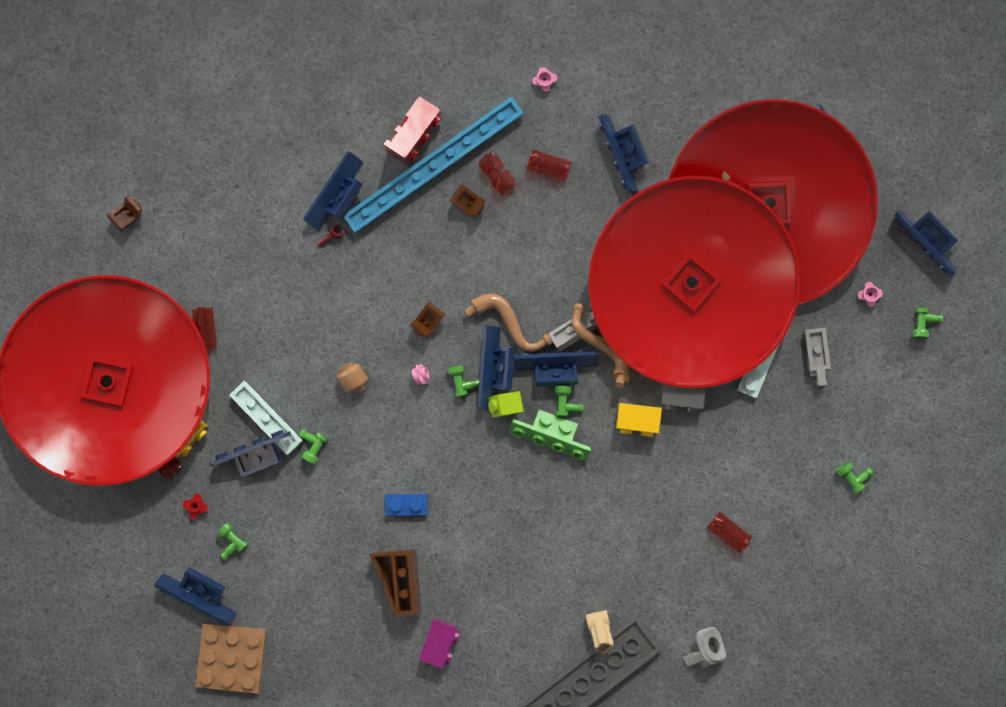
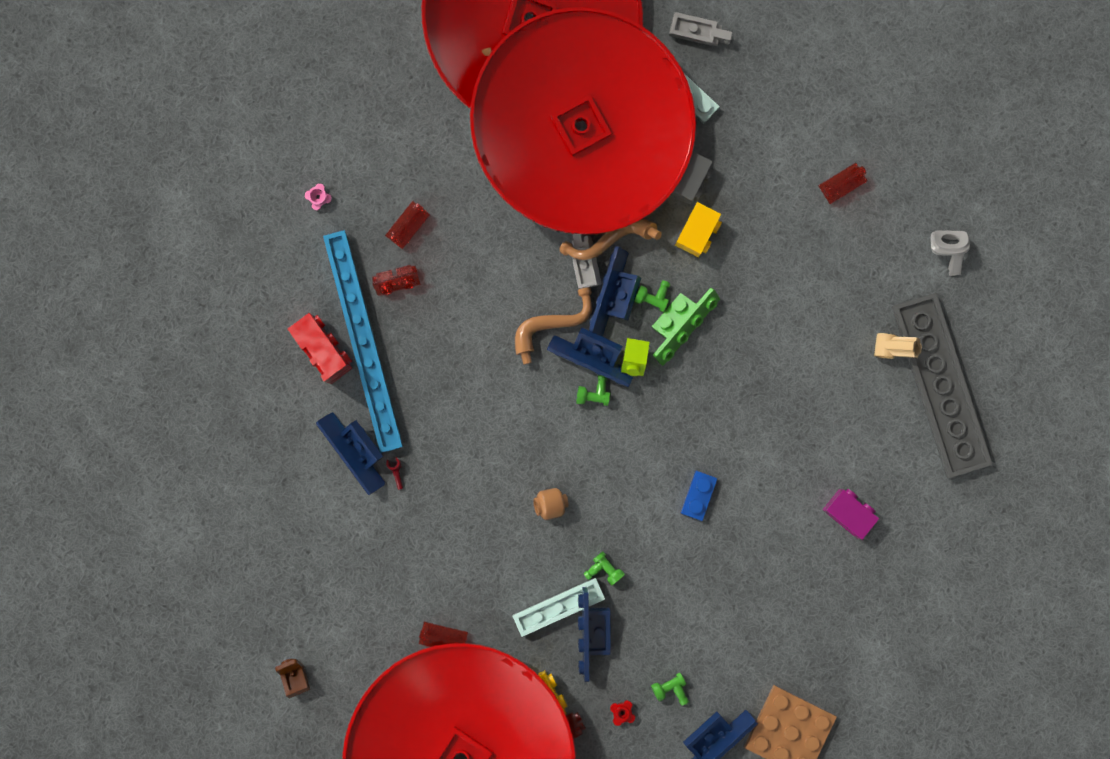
camera: 75 degrees left, 0 degrees up
(400, 579) = (772, 528): reddish brown wedge -> none
(420, 374) = (572, 432): bright pink plate -> none
(427, 320) = (520, 405): reddish brown bracket -> none
(467, 201) = (413, 319): reddish brown bracket -> none
(626, 150) = (421, 140): dark blue bracket -> none
(855, 482) = (822, 46): bright green piece -> none

